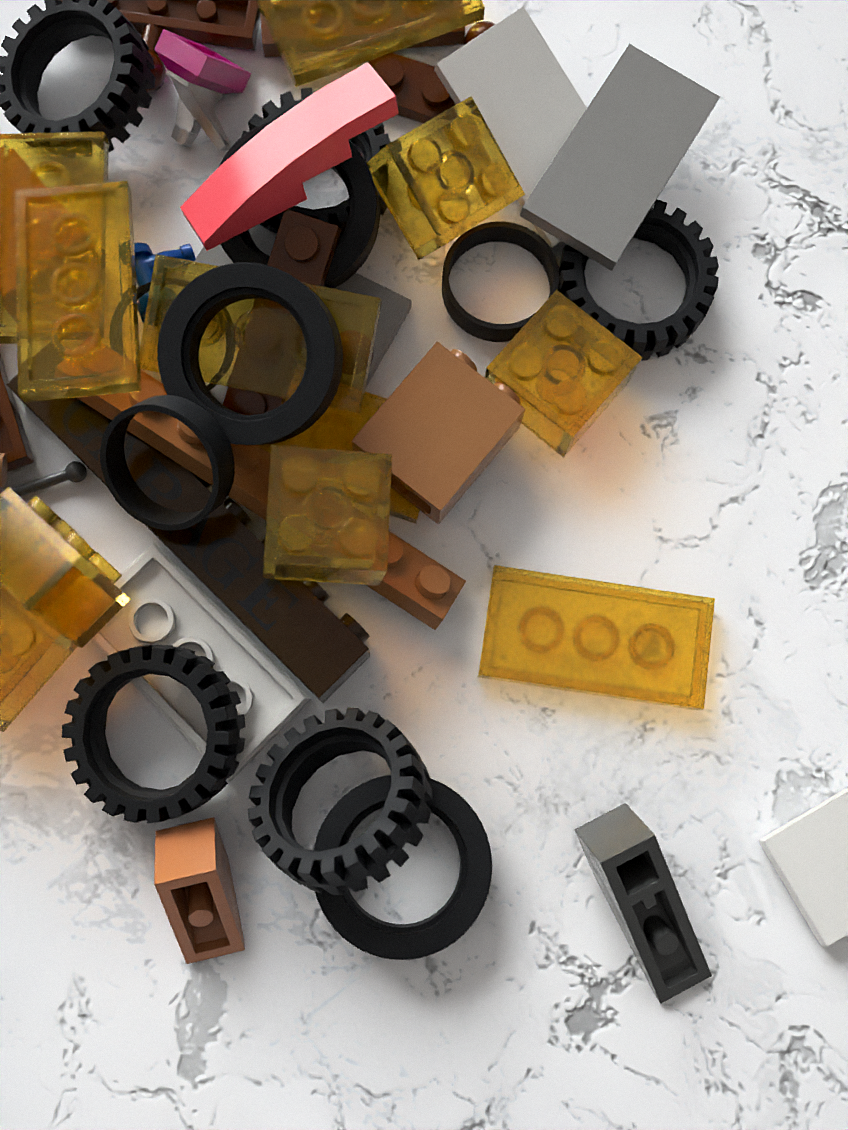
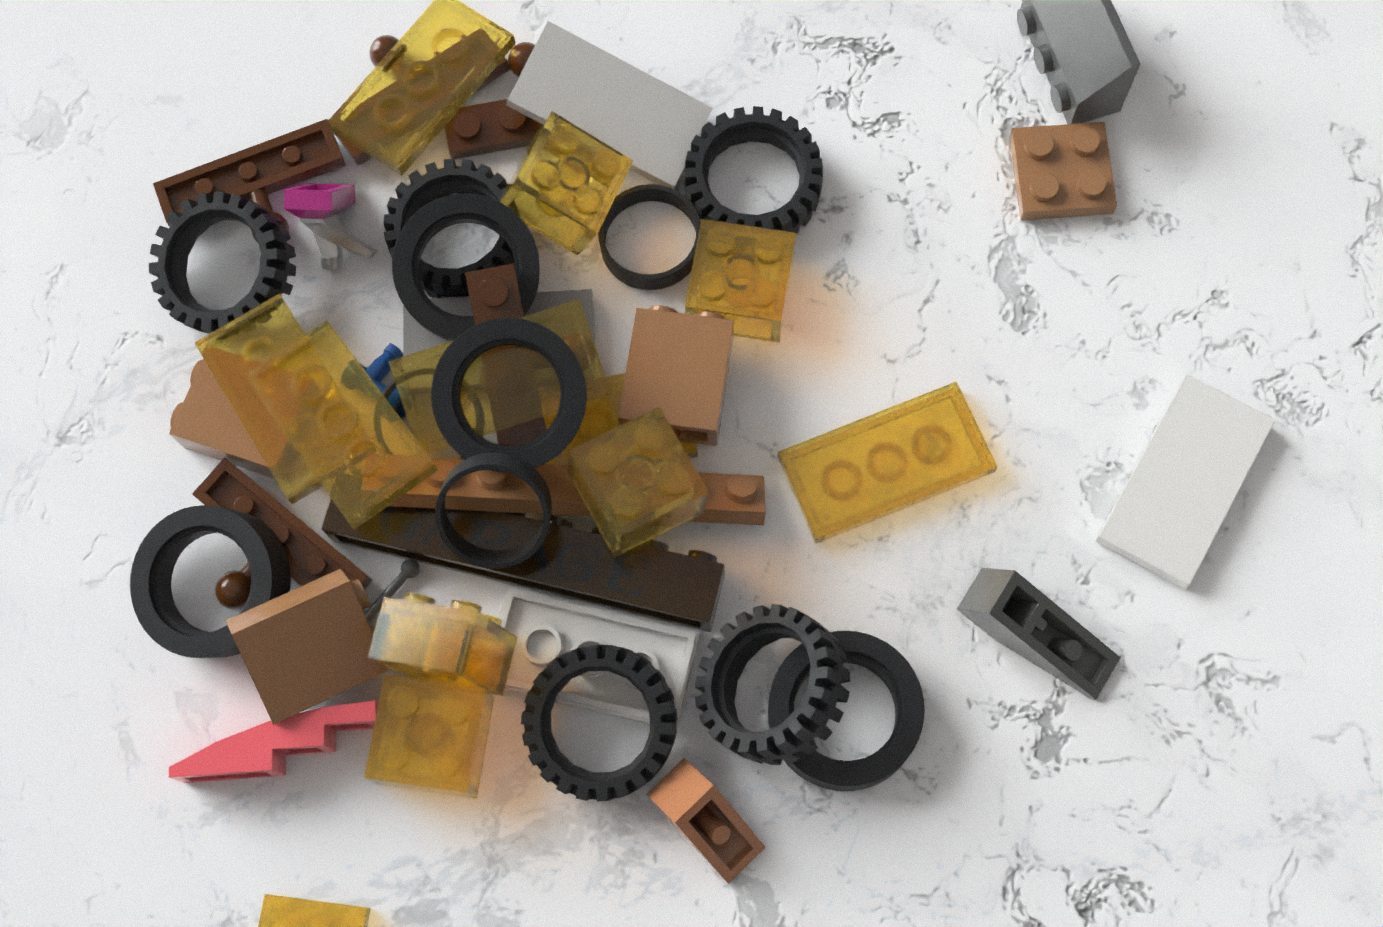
camera: 20 degrees left, 5 degrees down
(300, 144) = (441, 242): coral slope -> none
(619, 157) = (688, 93): light grey tile -> none

